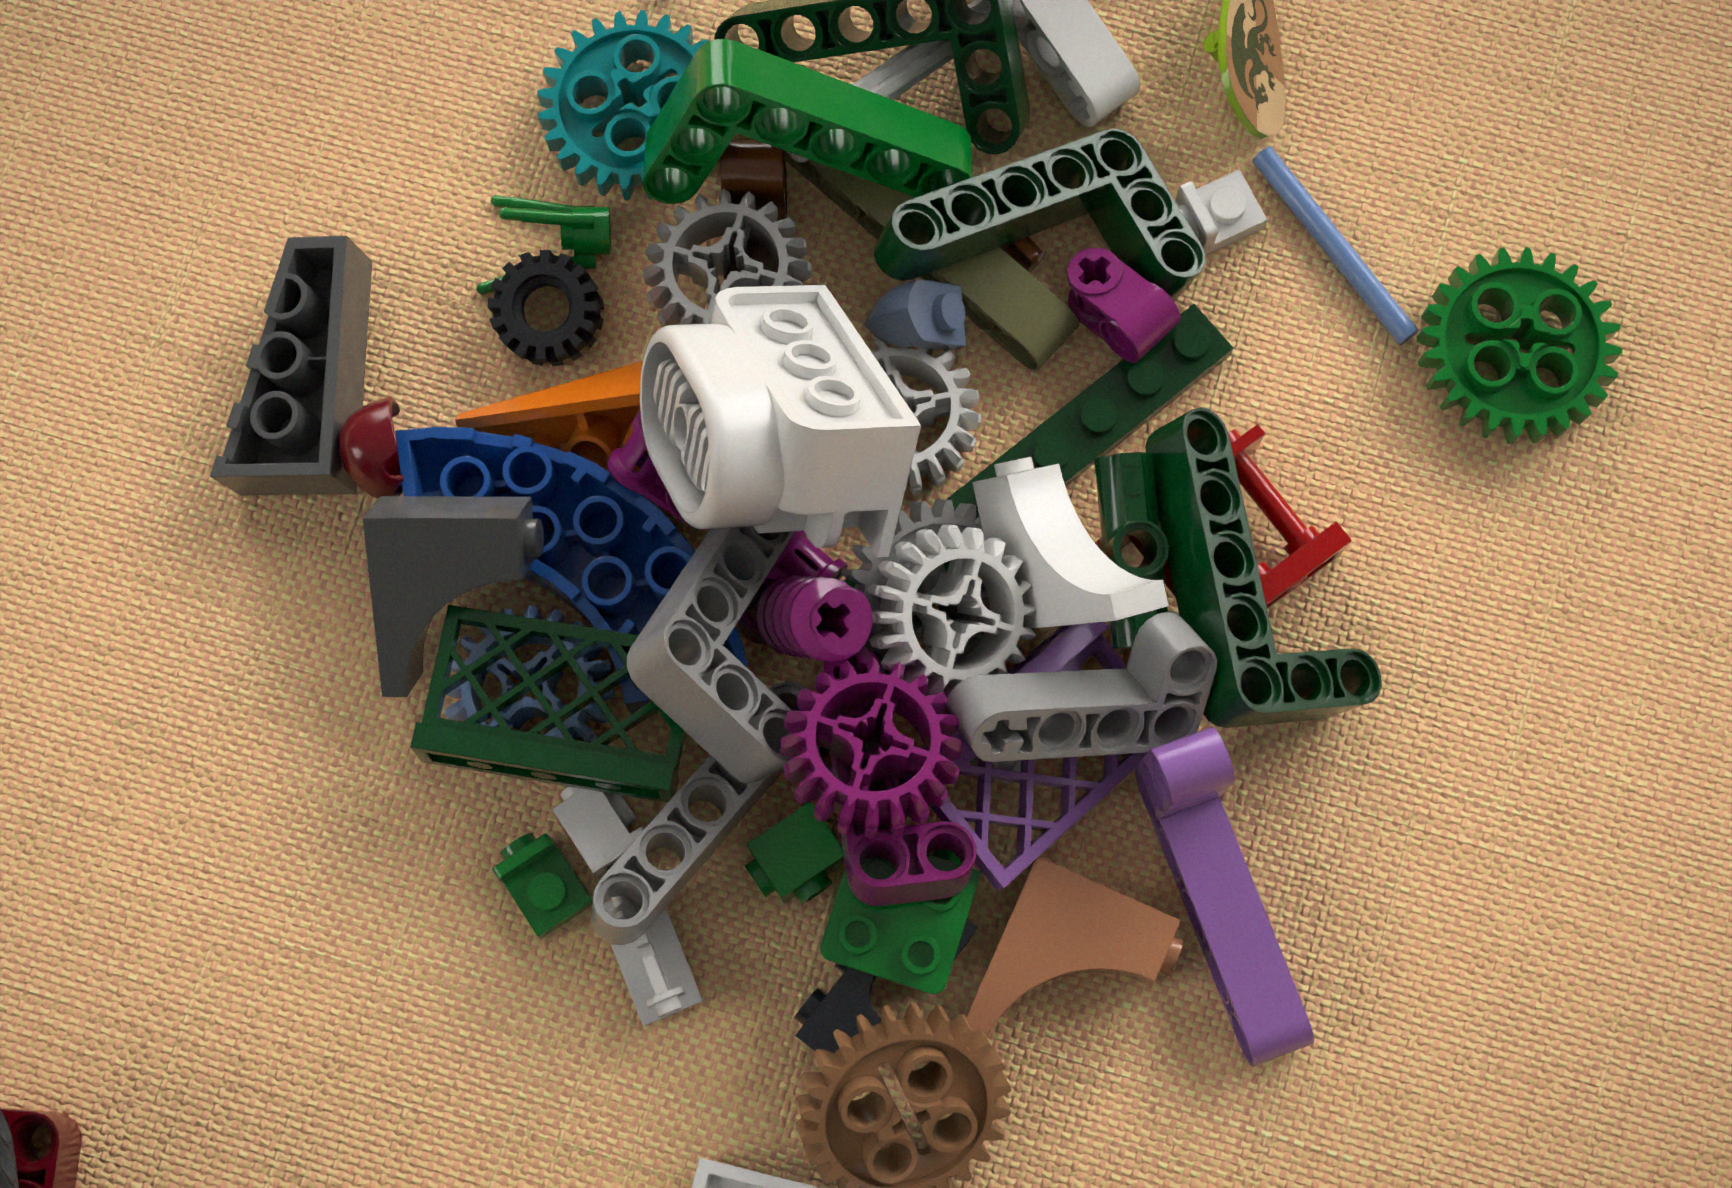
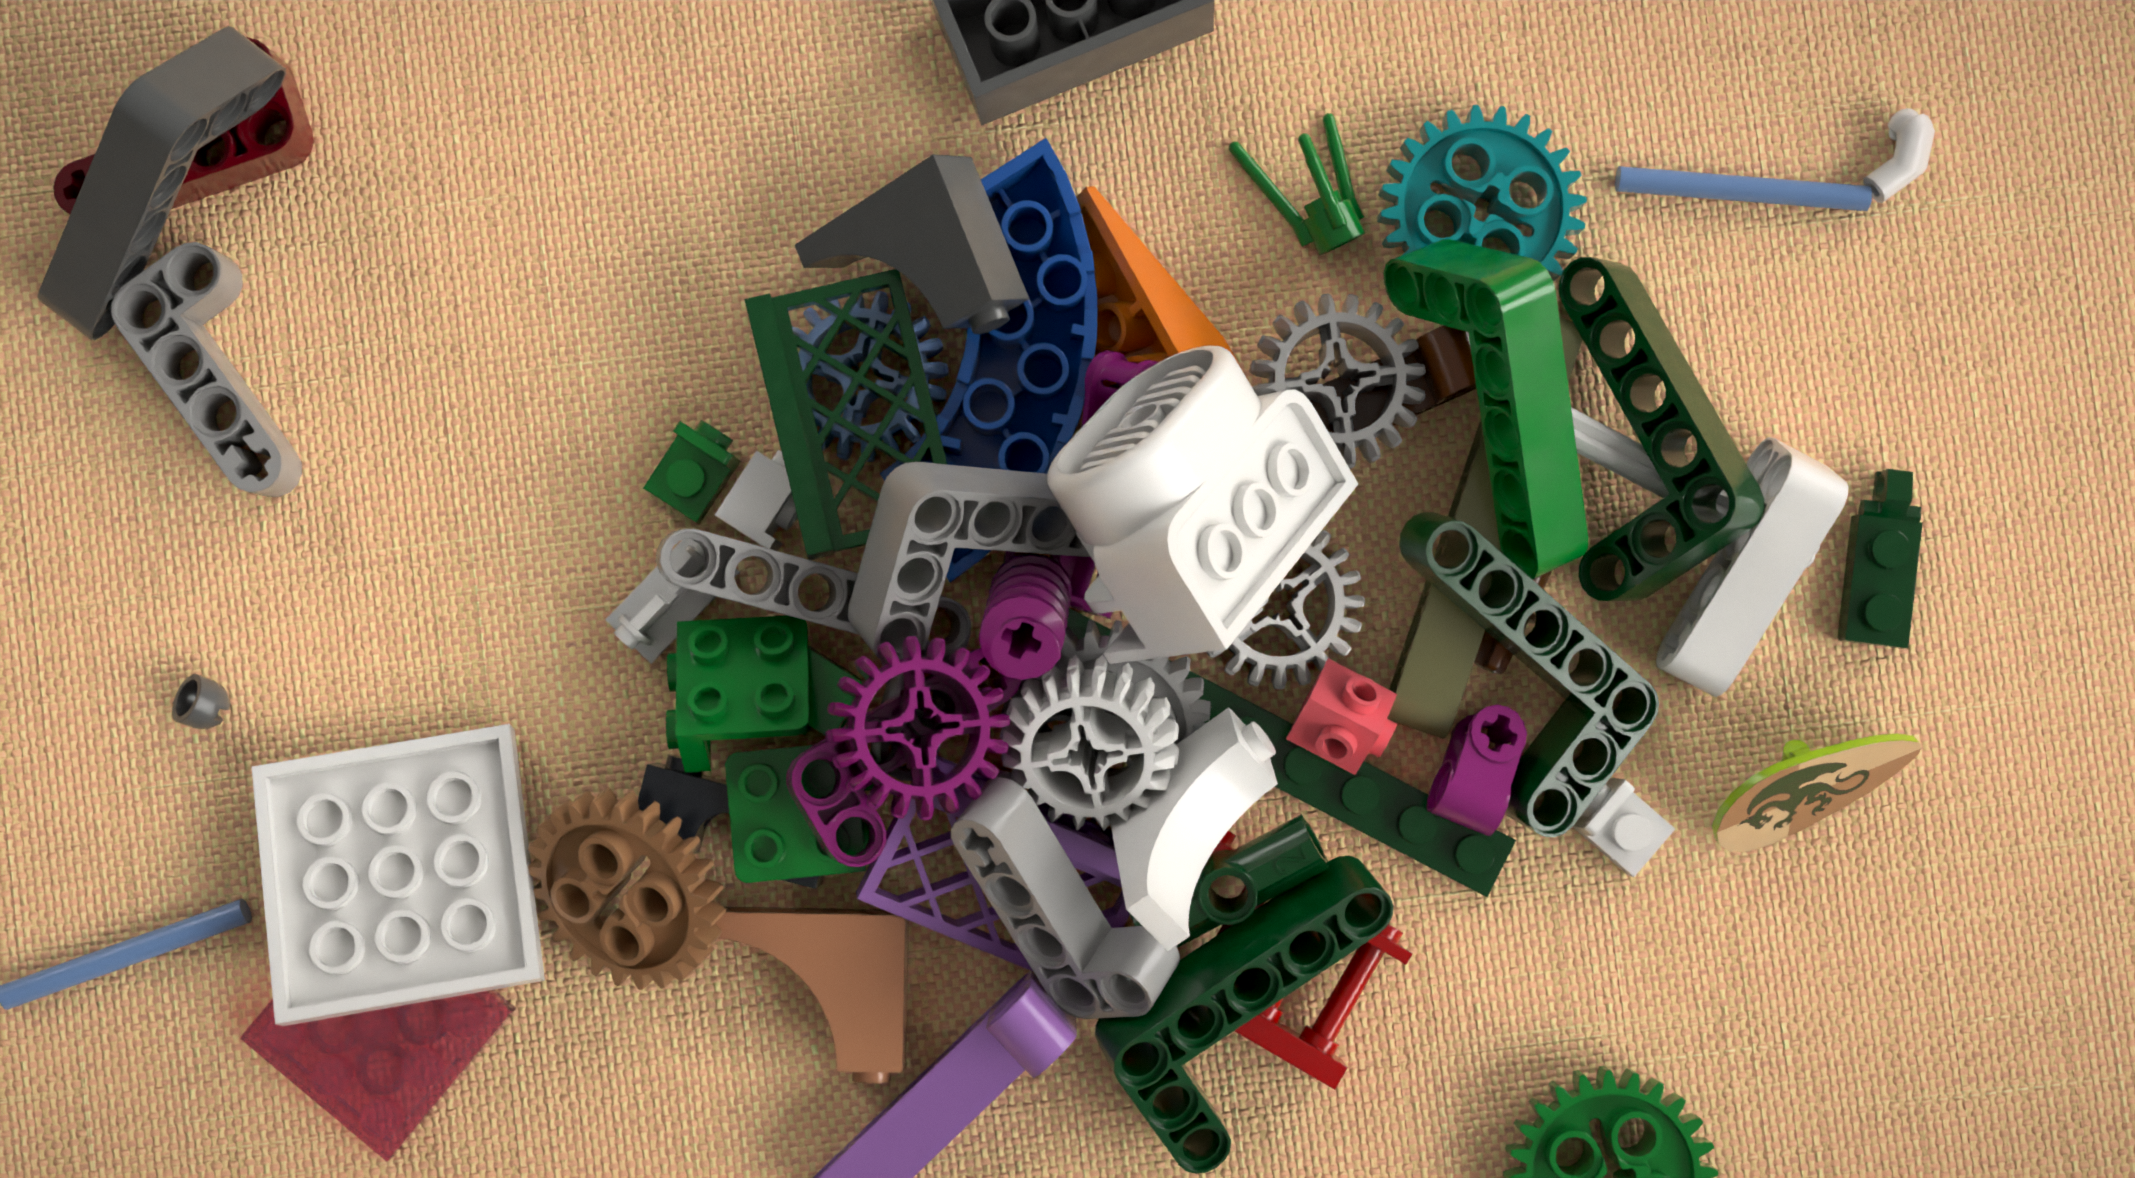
camera: 60 degrees right, 10 degrees up
(371, 449) = (1018, 123): dark red hair -> none
(520, 282) = (1211, 190): black tyre -> none
(756, 917) = (736, 683): none -> green bracket
(920, 316) = (1377, 584): sand blue plate -> none
(1024, 395) = (1344, 718): none -> coral brick
(1335, 245) = (1639, 952): medium blue bar -> none

